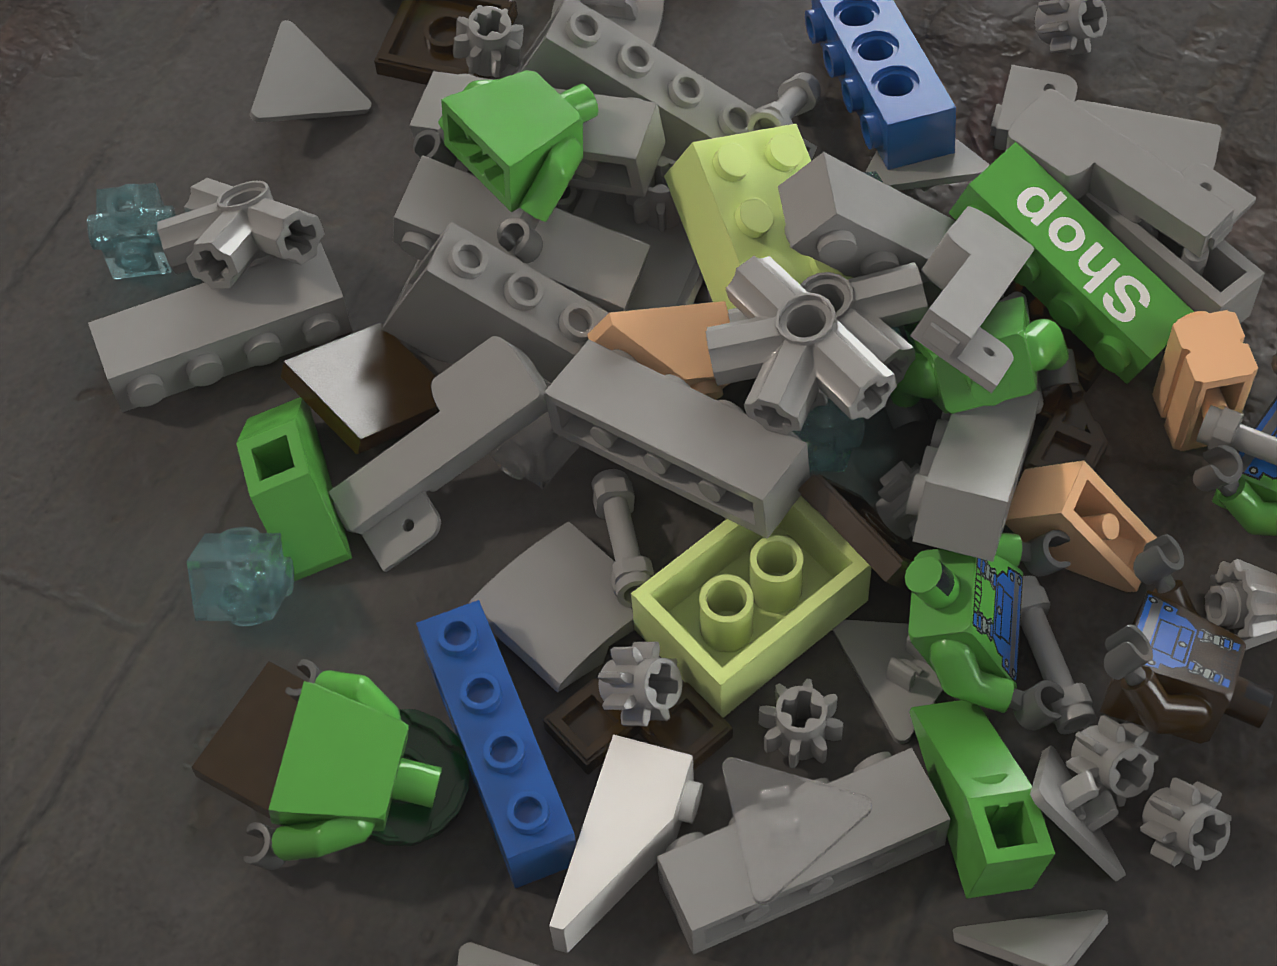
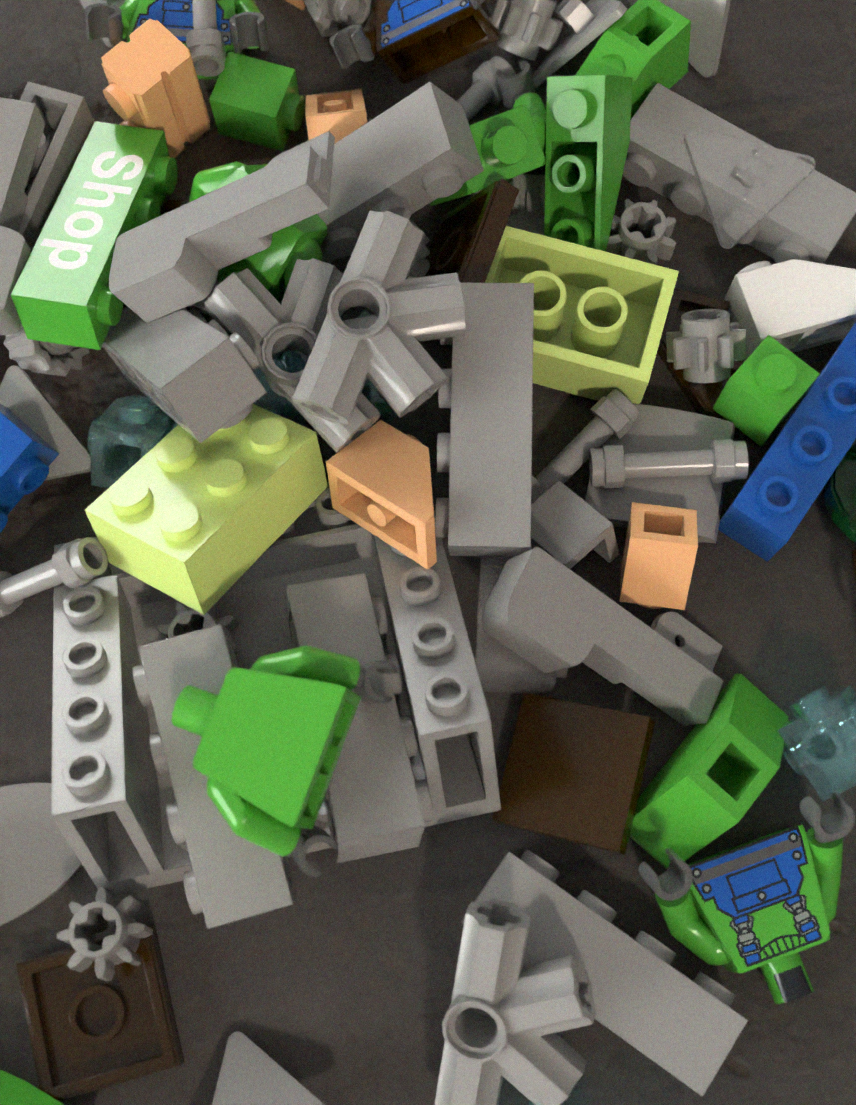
camera: 125 degrees left, 15 degrees up
(181, 447) = (760, 898): none -> torso
(485, 537) = (658, 556): none -> light nougat brick
(527, 631) = (723, 461): none -> light grey bar
(558, 484) = (570, 527): none -> light grey panel
(562, 703) = (765, 390): none -> bright green brick
(907, 693) = (585, 155): none -> bright green slope
(1159, 477) = (257, 101): none -> bright green brick

